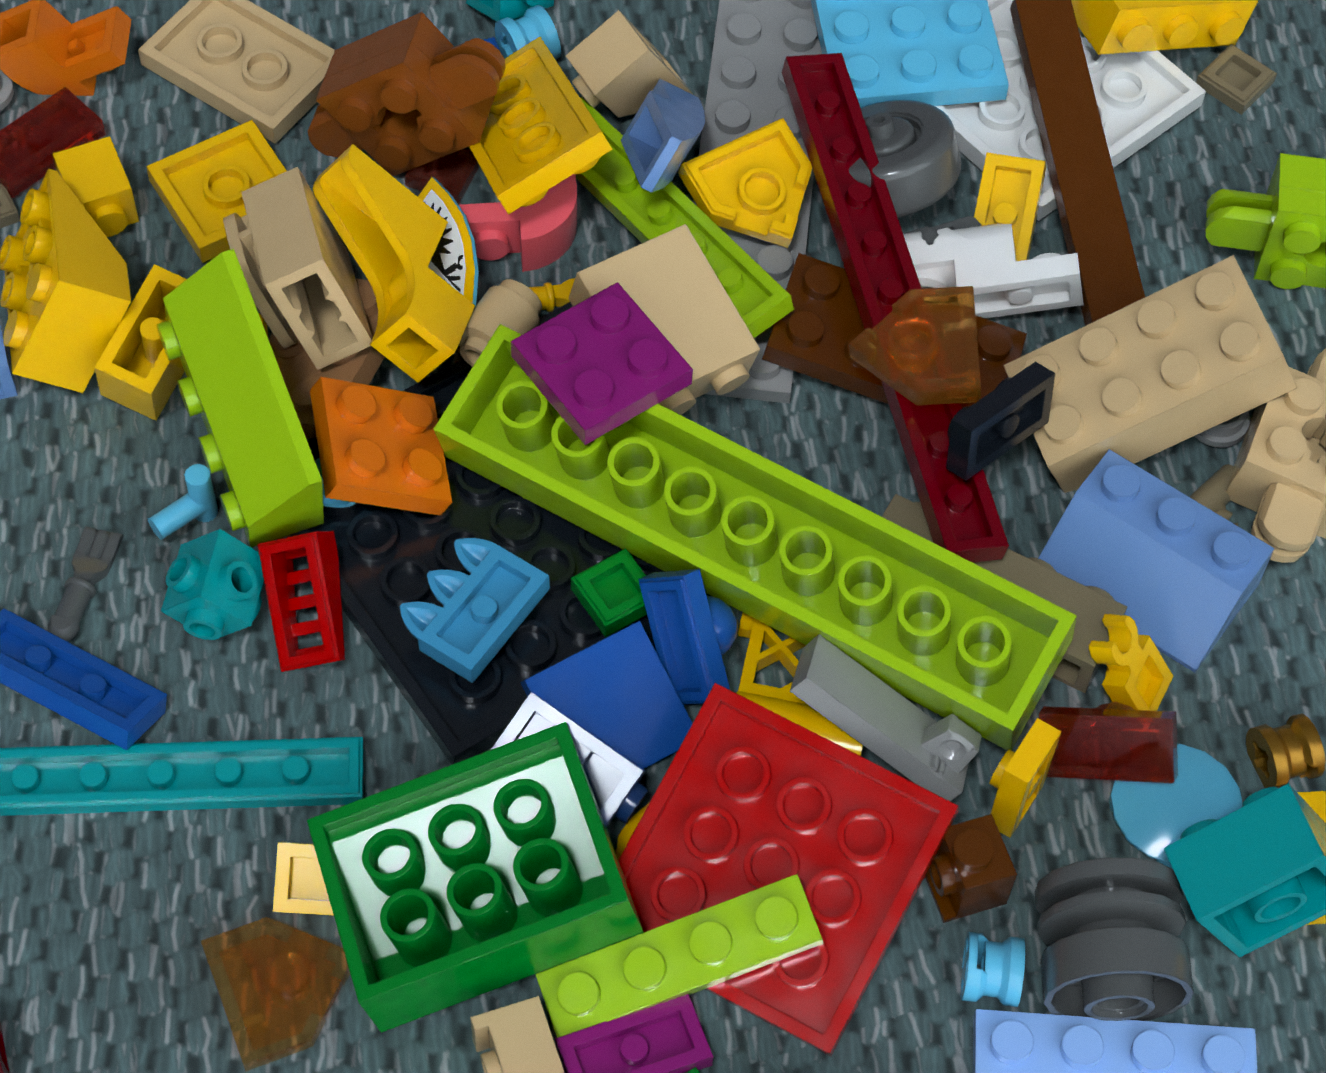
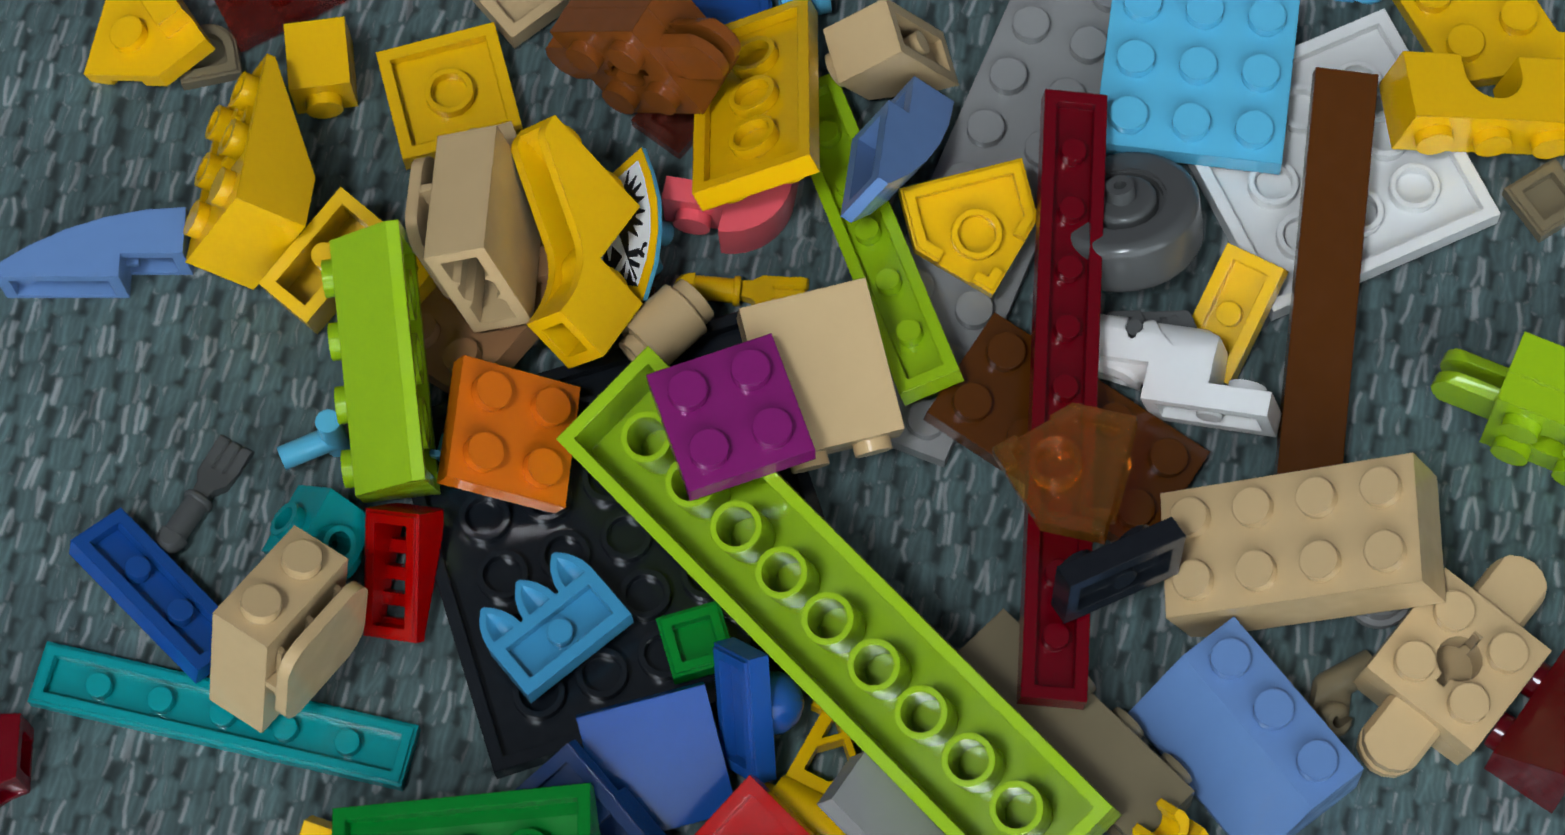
camera: 25 degrees right, 10 degrees up
(212, 664) = (284, 631): none -> tan brick

